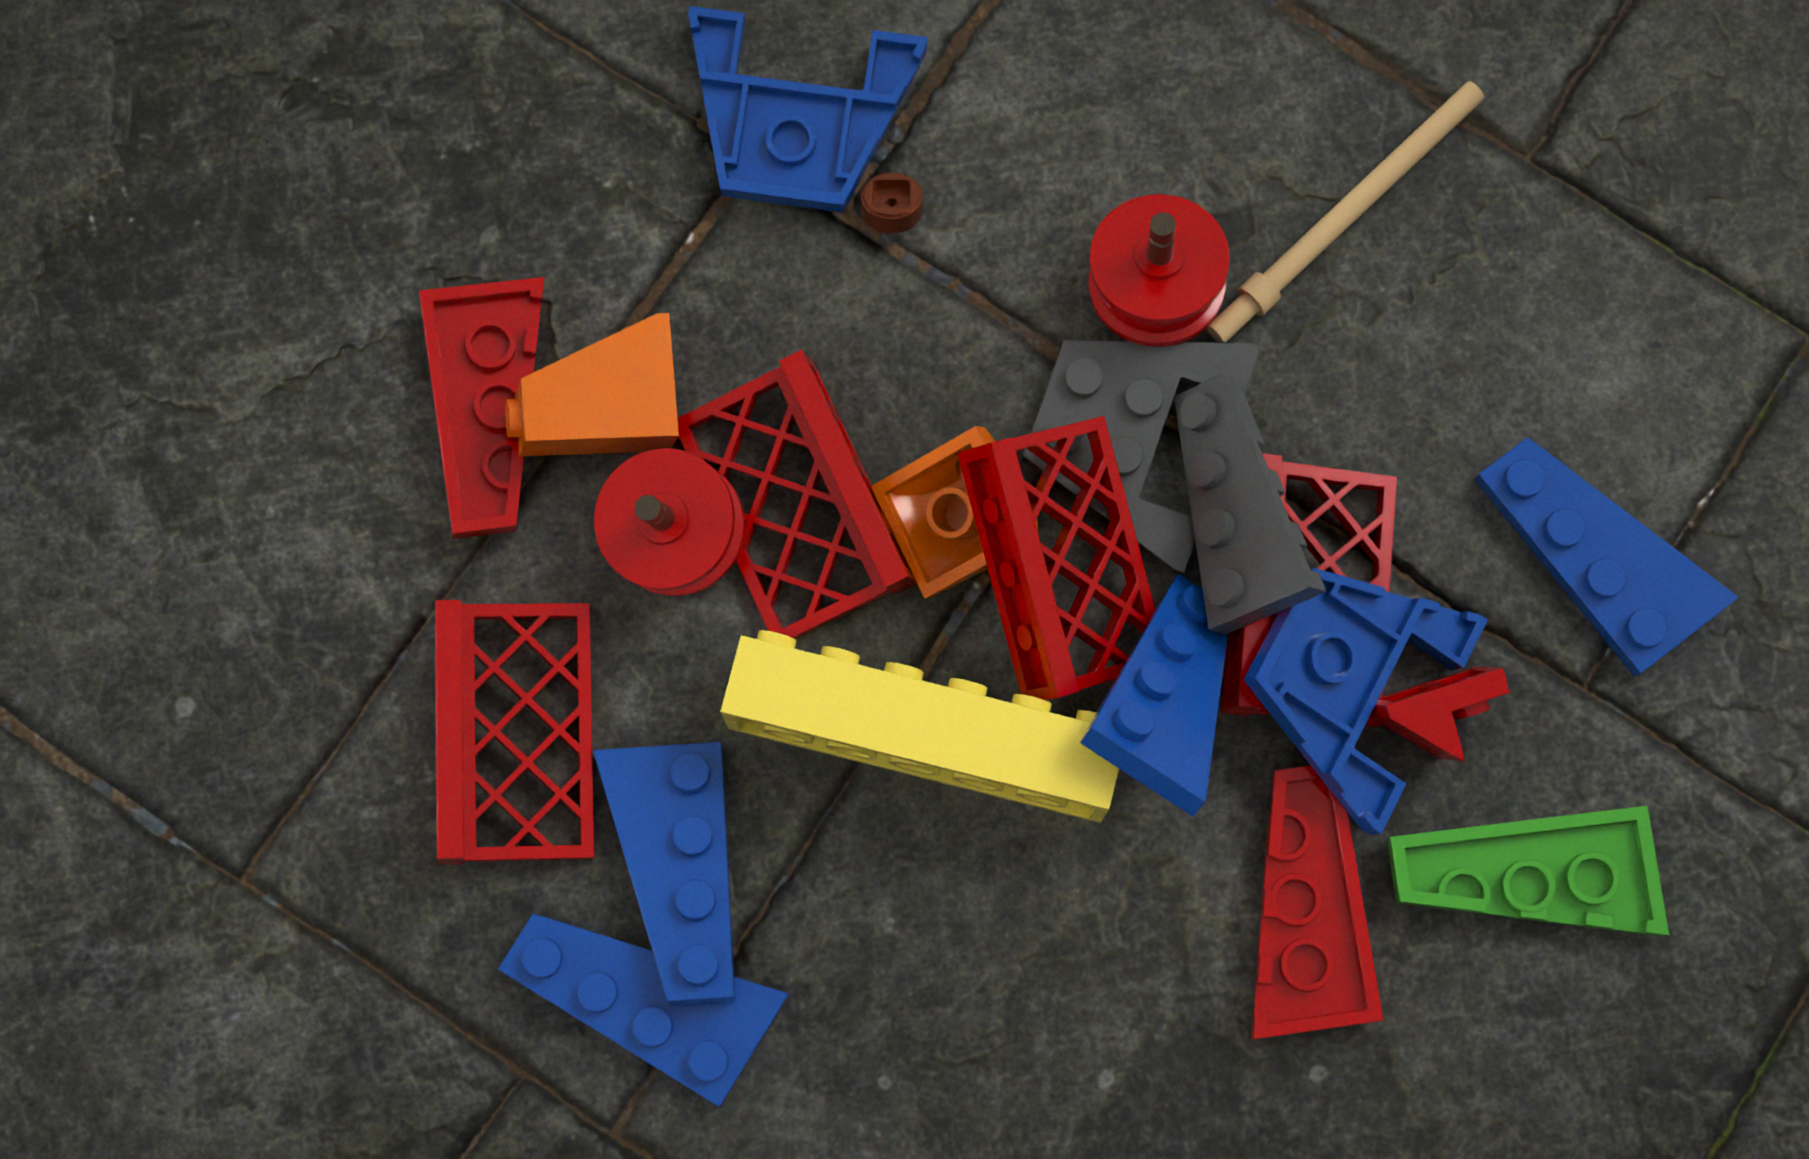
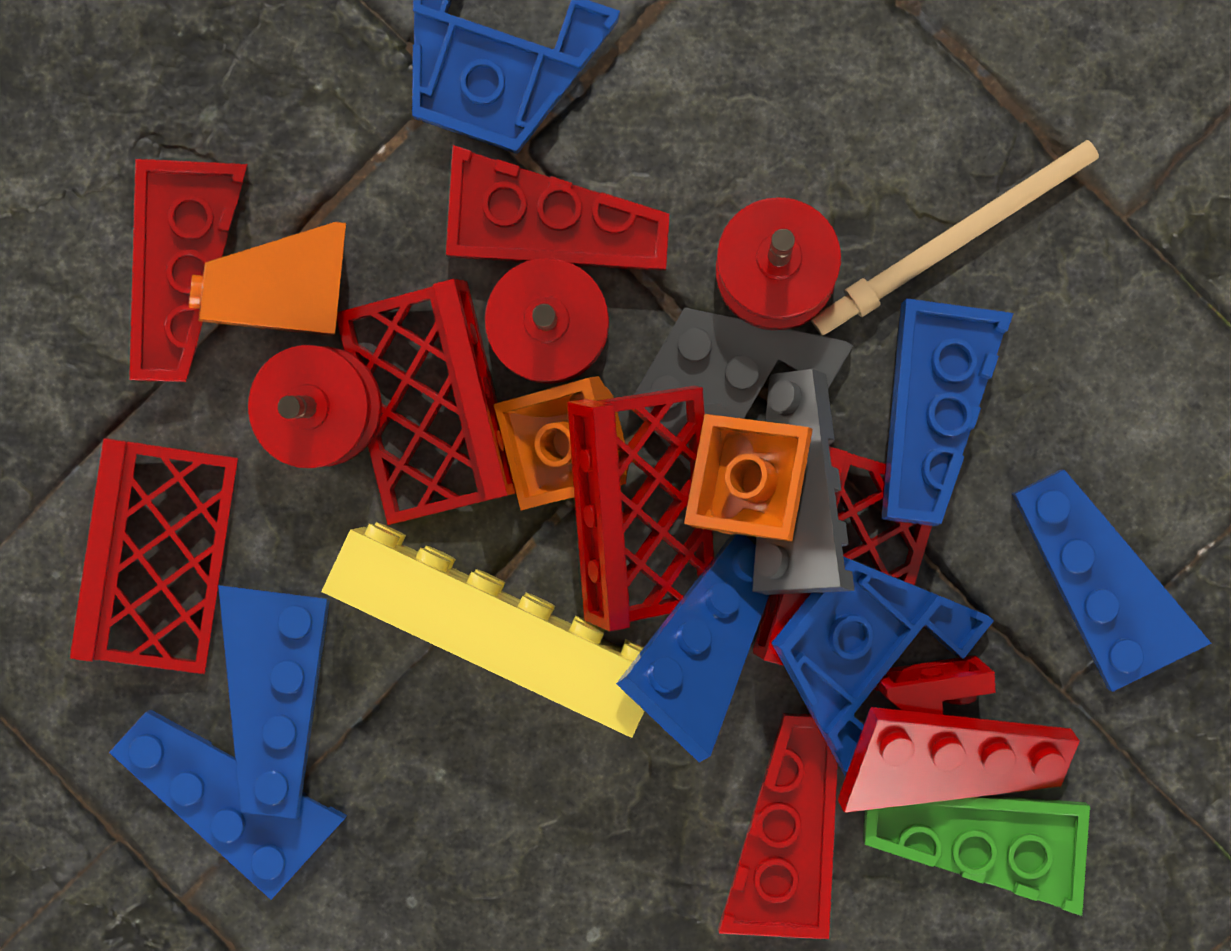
camera: 10 degrees right, 10 degrees up
(861, 278) = (527, 216): none -> red wing
(891, 203) = (560, 154): copper tile -> none
(914, 379) = (547, 320): none -> red wheel
(1178, 497) = (748, 477): none -> orange slope
(1366, 376) = (937, 392): none -> blue wing
(1470, 777) = (947, 757): none -> wing

